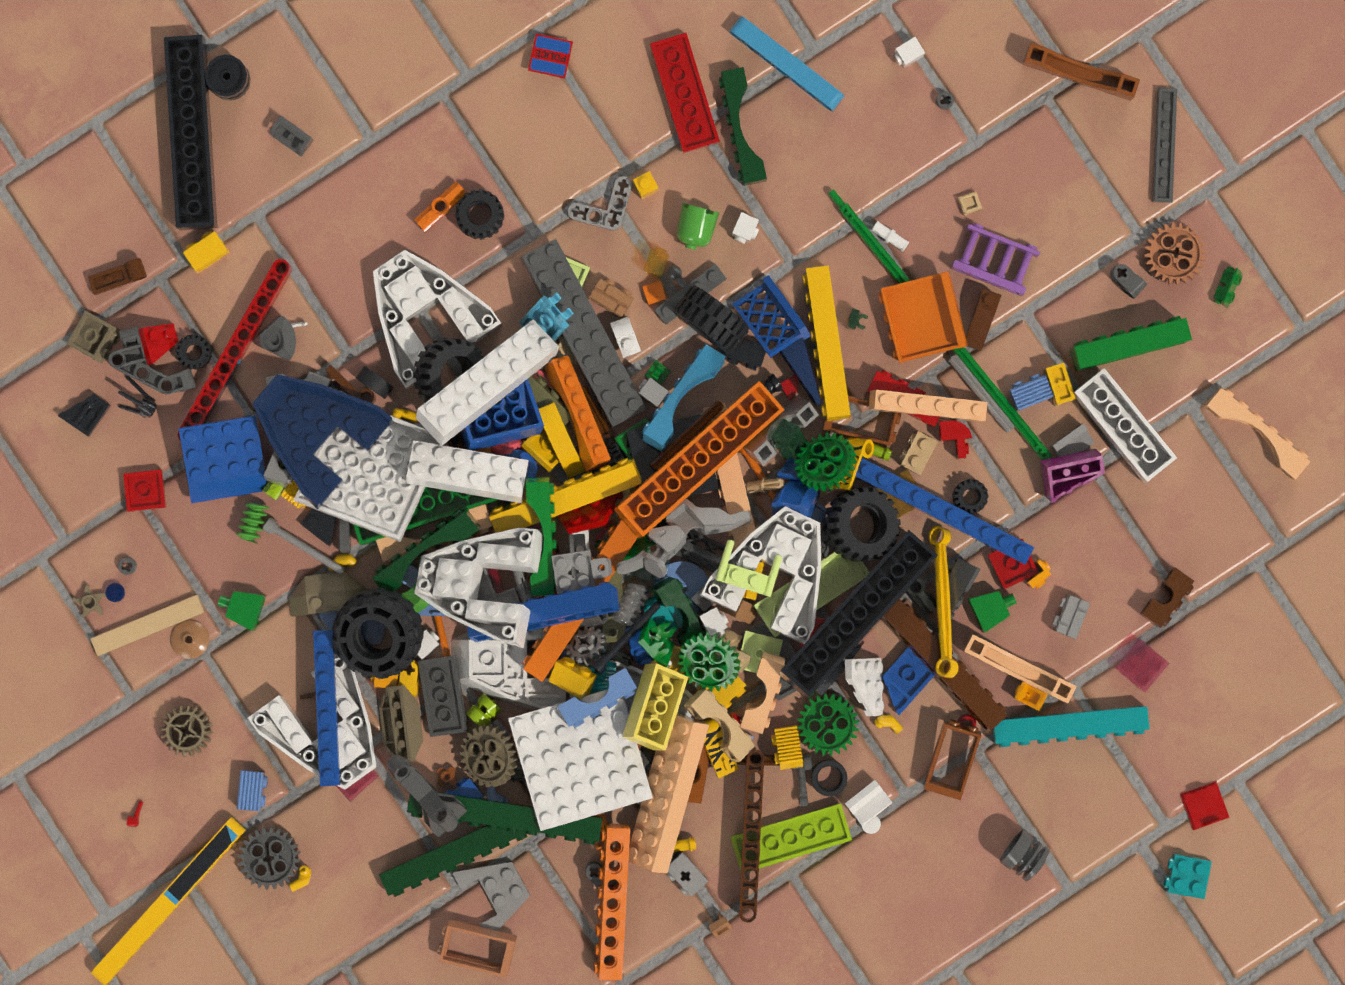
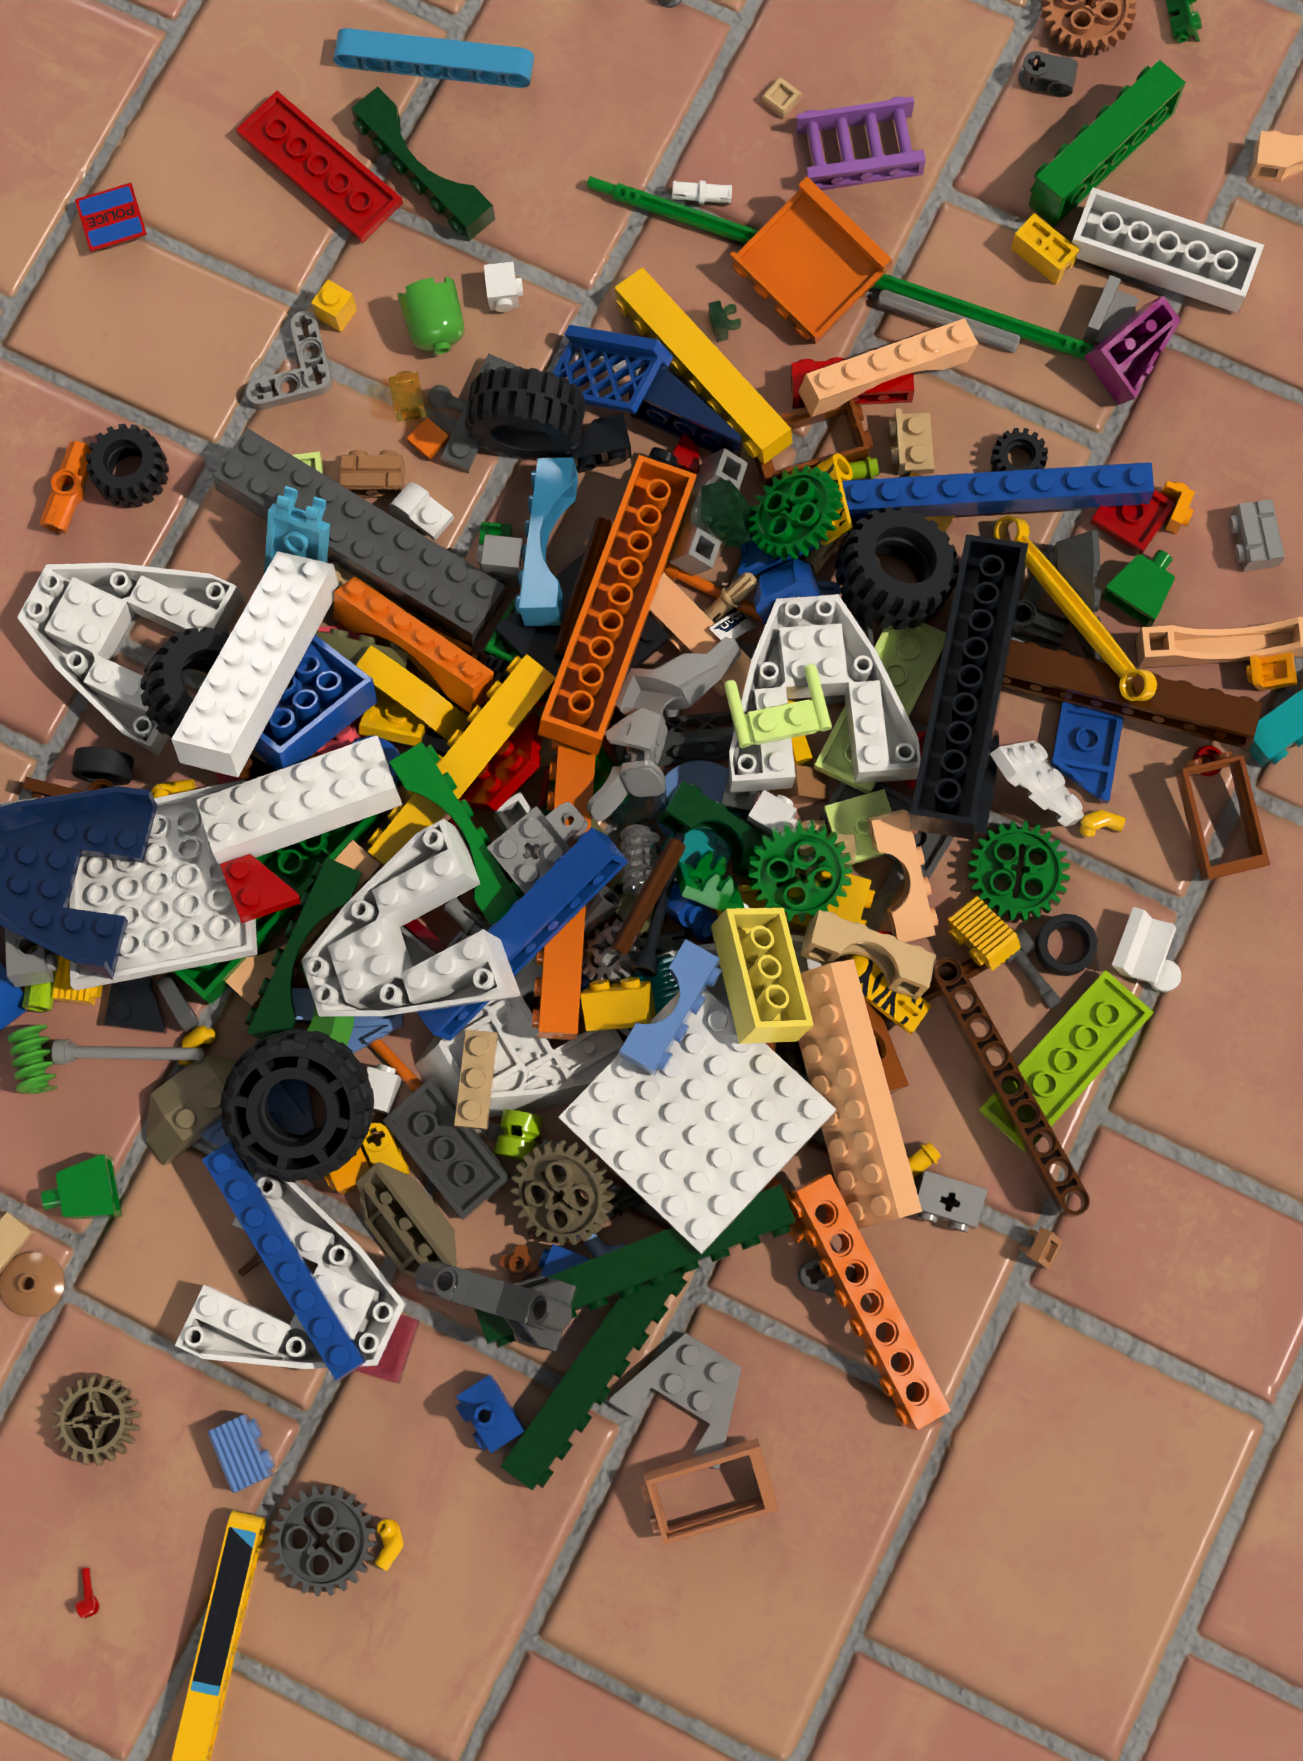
camera: 25 degrees left, 10 degrees down
(388, 844) = (490, 1414): none -> blue brick
(418, 506) = (256, 888): none -> red wing
(477, 671) = (476, 1079): none -> tan plate
(621, 630) = (648, 896): none -> reddish brown axle
(756, 502) = (732, 626): none -> white sticker
(955, 431) = (949, 385): red brick -> none
(982, 319) = (889, 222): reddish brown slope -> none
(1030, 393) = (1014, 281): medium blue brick -> none

